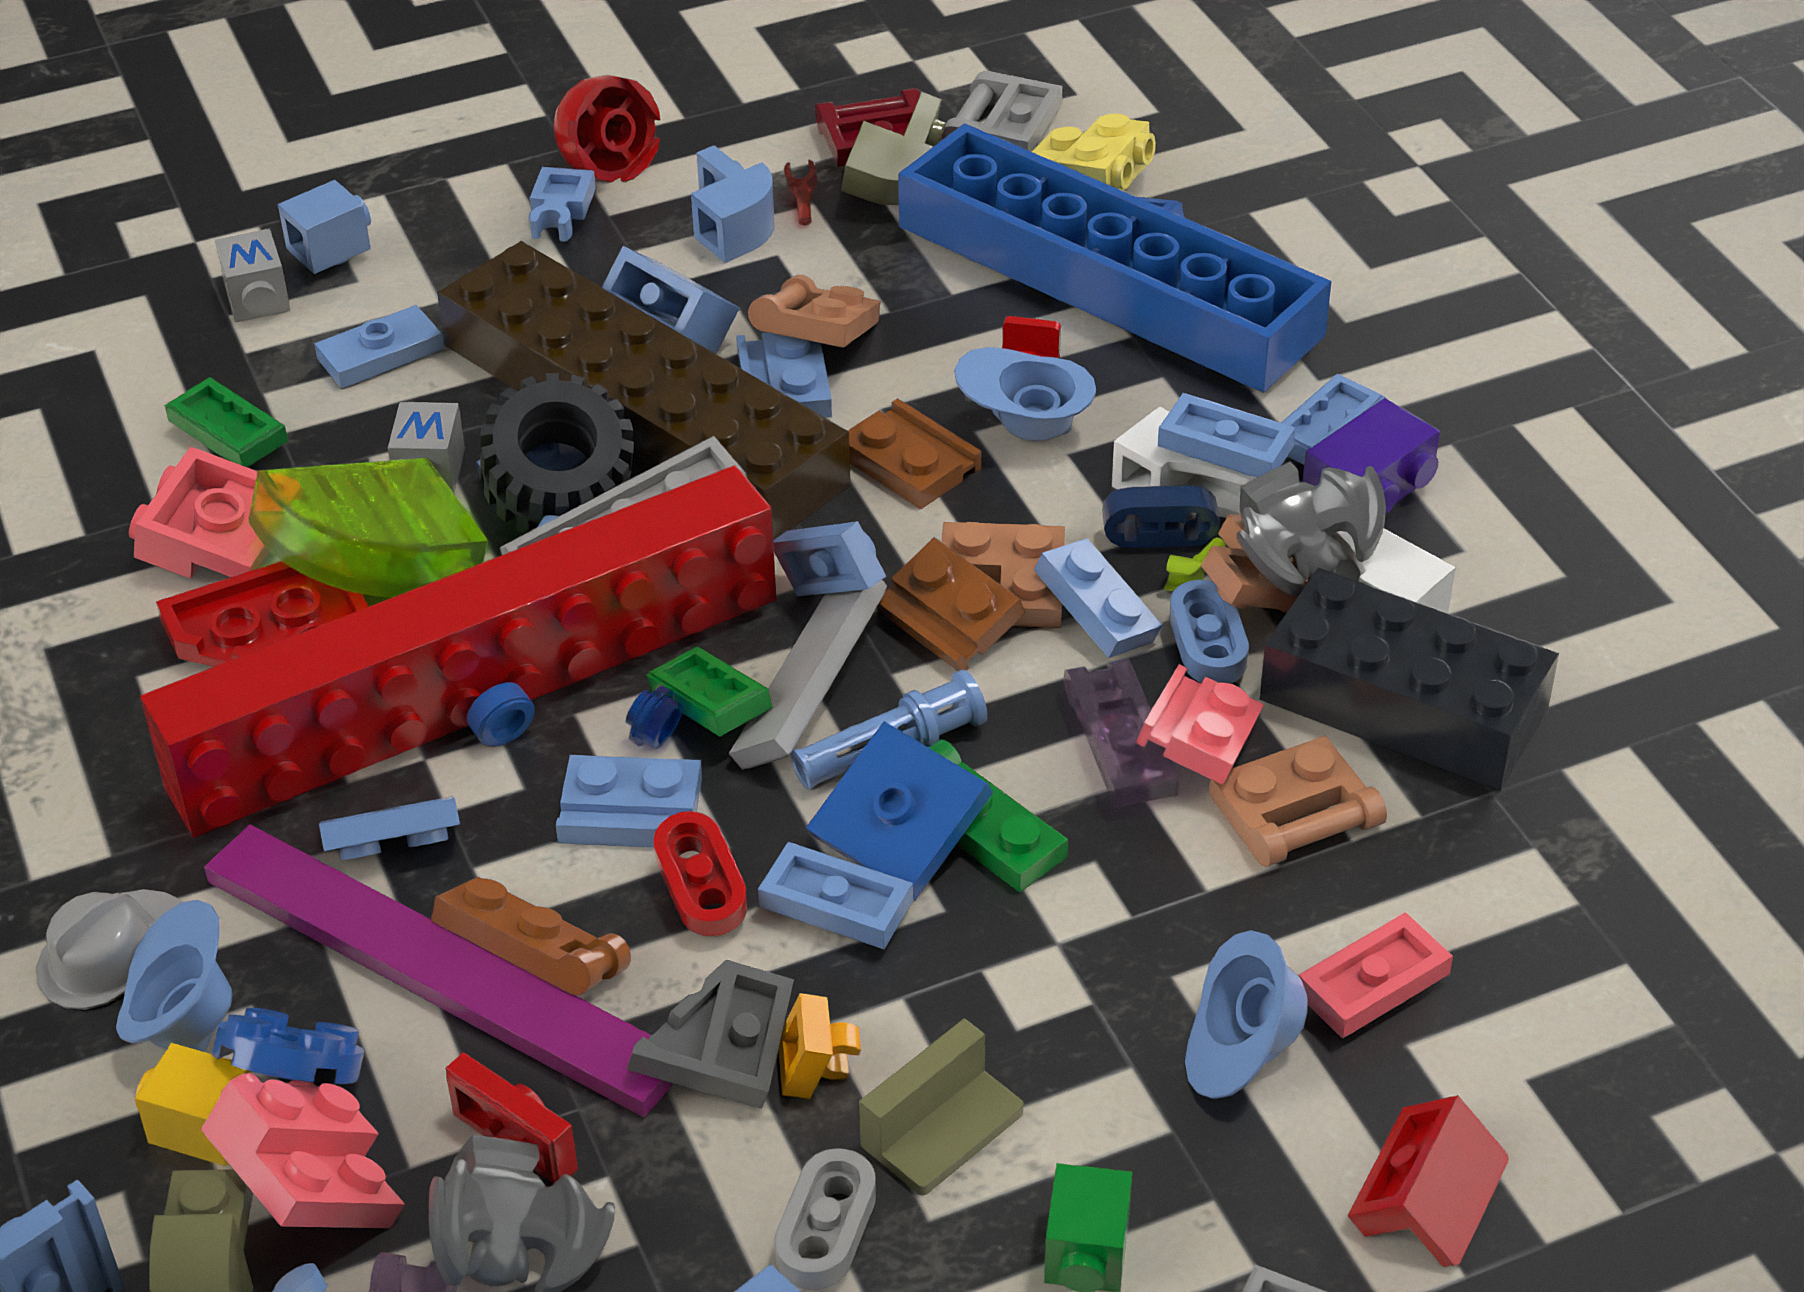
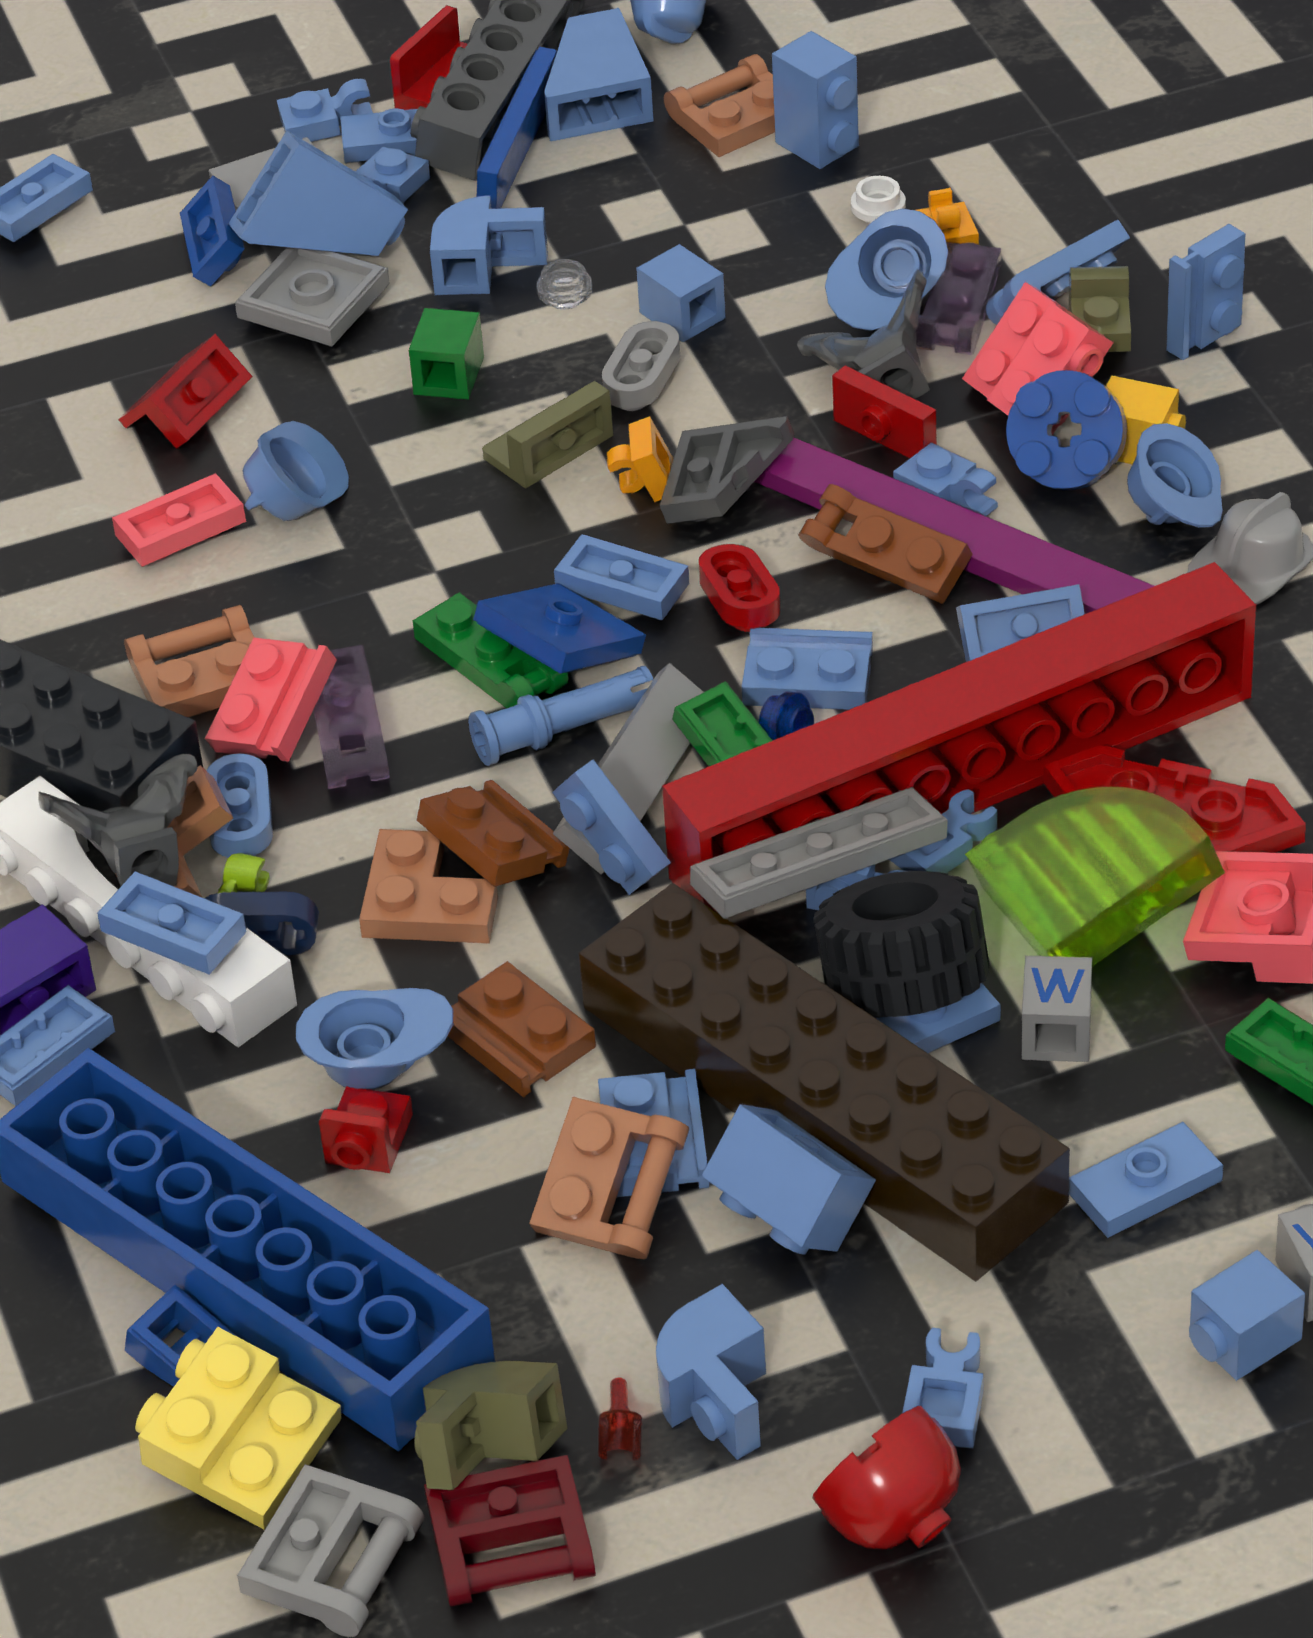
camera: 175 degrees left, 0 degrees up
(442, 1039) = (949, 478): none -> medium blue plate
(1097, 597) = (341, 829): medium blue plate -> none

